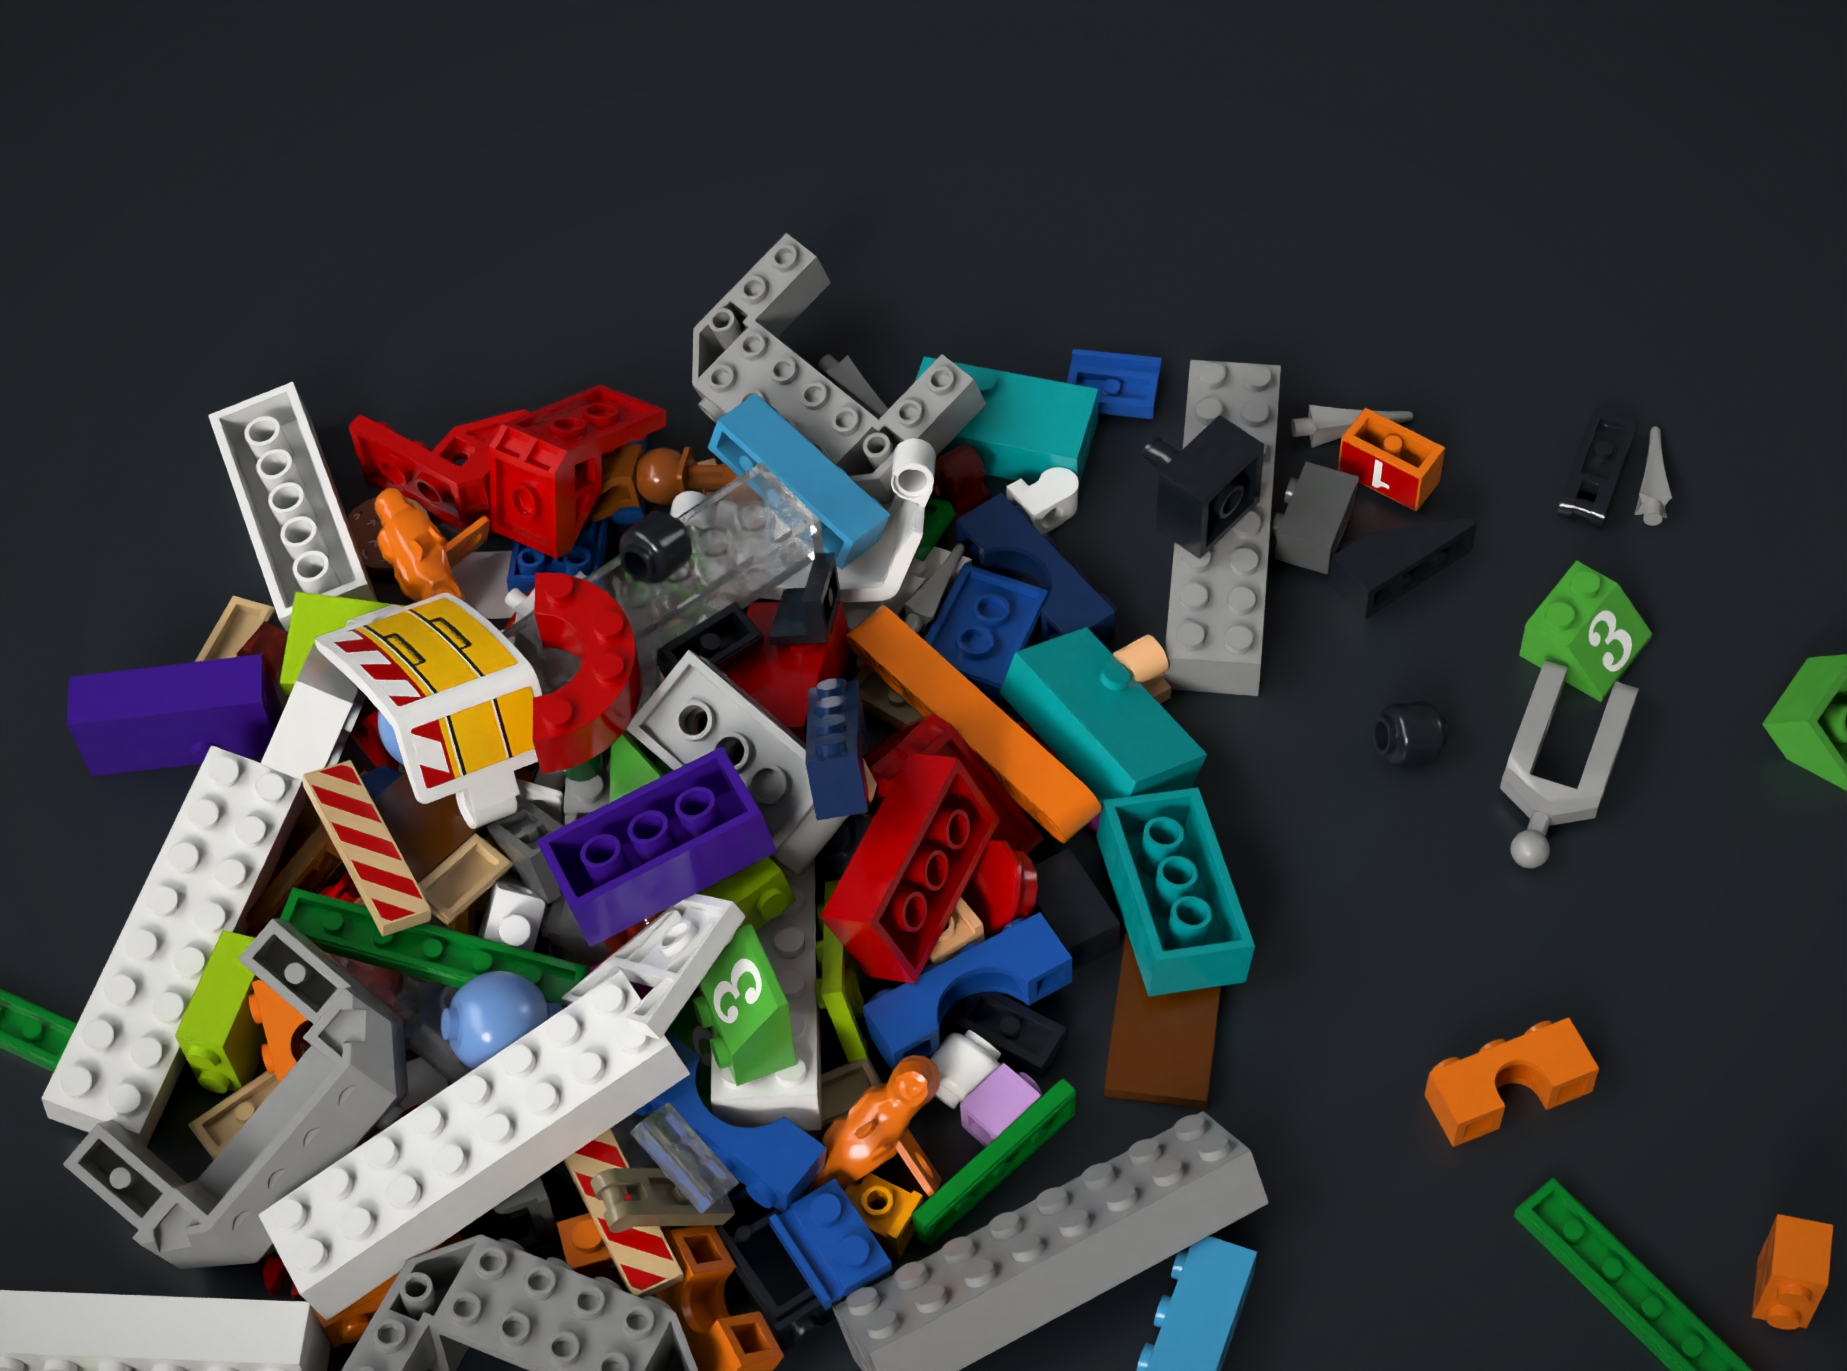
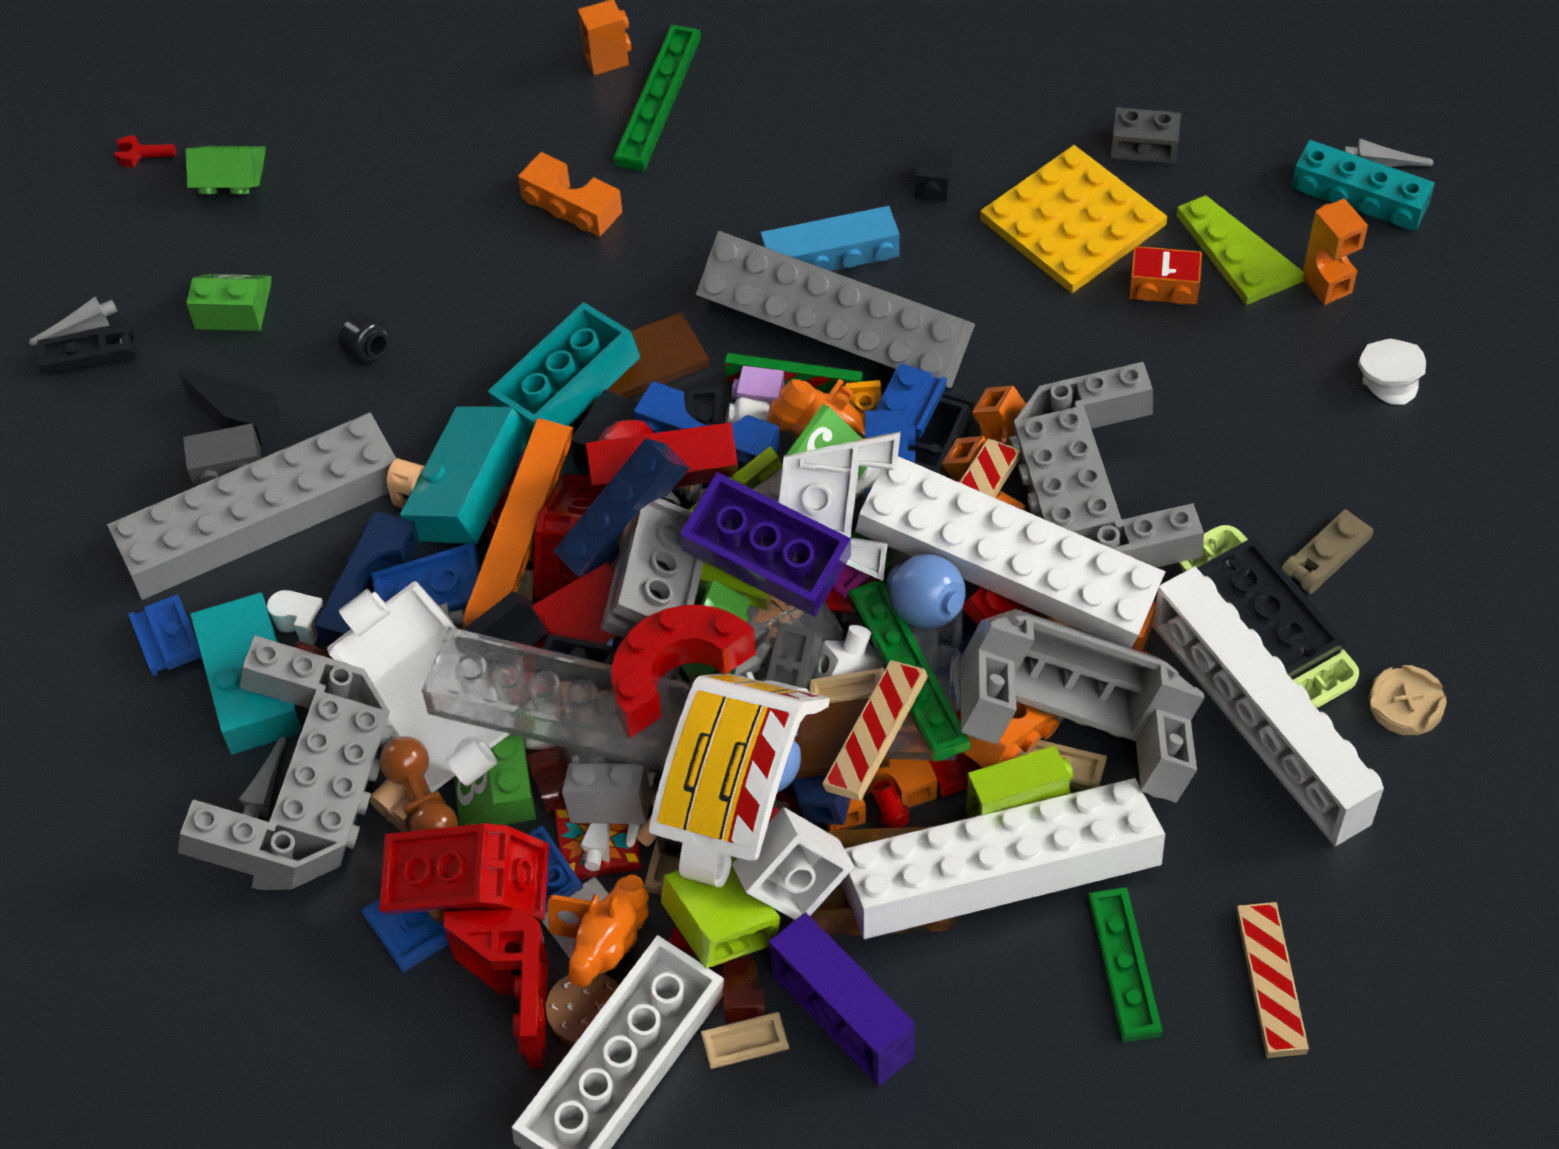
camera: 125 degrees left, 0 degrees up
(653, 1203) = (964, 458): dark tan plate -> none
(655, 548) = (545, 684): black head -> none
(684, 1157) = (933, 450): clear plate -> none
(759, 434) = (398, 710): dark azure brick -> none
(1205, 484) = (262, 471): black brick -> none
(1331, 423) = (126, 497): light grey piece -> none
(1391, 459) = (150, 440): orange brick -> none
(1548, 801) = (358, 278): light grey piece -> none

